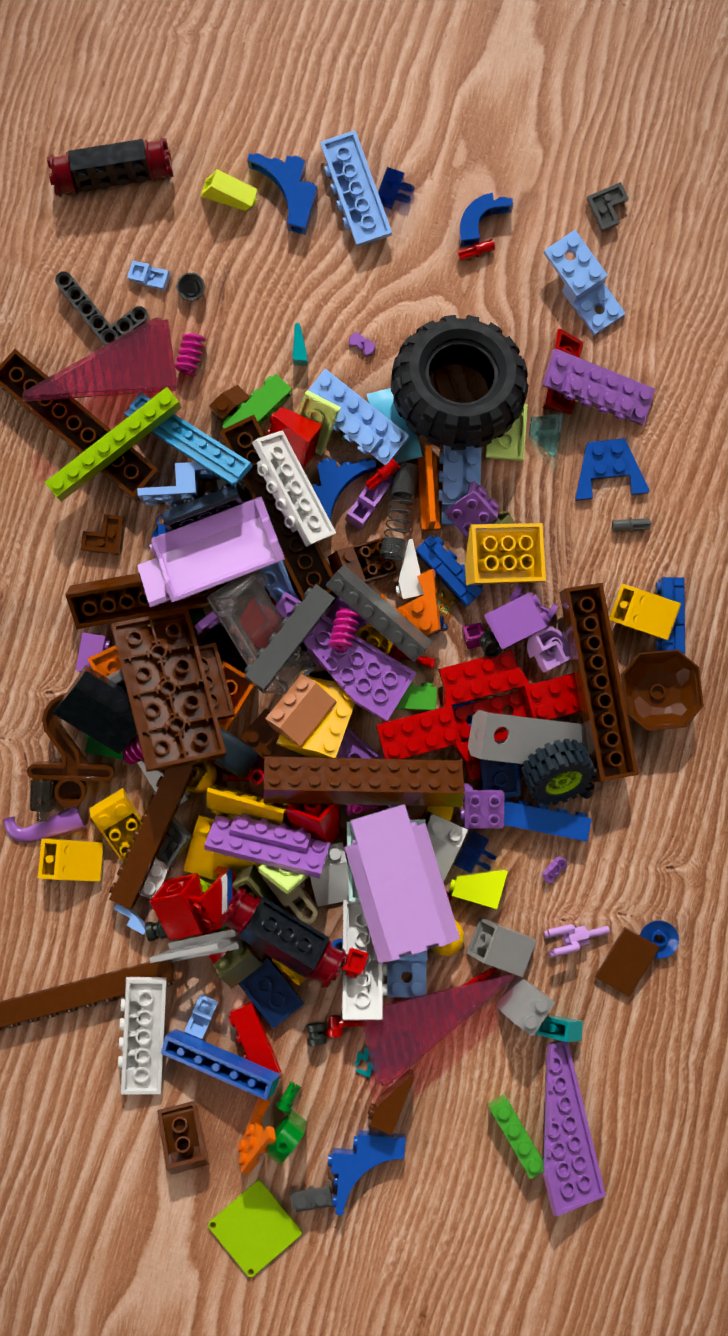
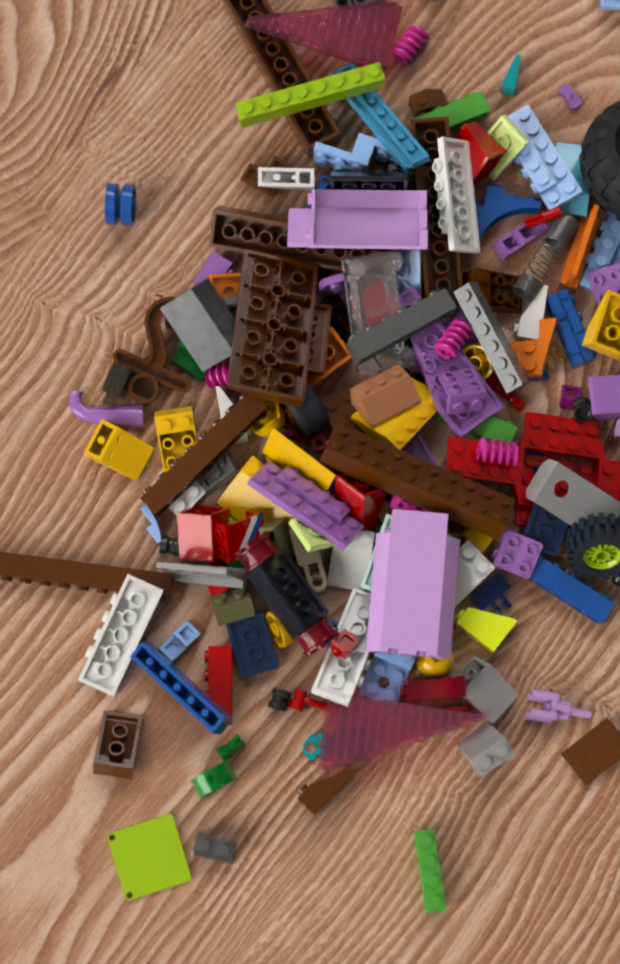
camera: 20 degrees right, 5 degrees down
(123, 533) = (286, 178): none -> white slope
(254, 1139) = (187, 767): orange wing -> none
(351, 1164) = (286, 827): blue arch -> none
(372, 676) = (463, 391): none -> medium lavender bracket
(427, 722) = (497, 450): none -> dark pink piece
(455, 967) = (433, 689): none -> dark red arch
(554, 869) = (561, 639): medium lavender piece -> none
(561, 1028) = (509, 786): teal slope -> none
(569, 1152) = (472, 905): medium lavender wing -> none

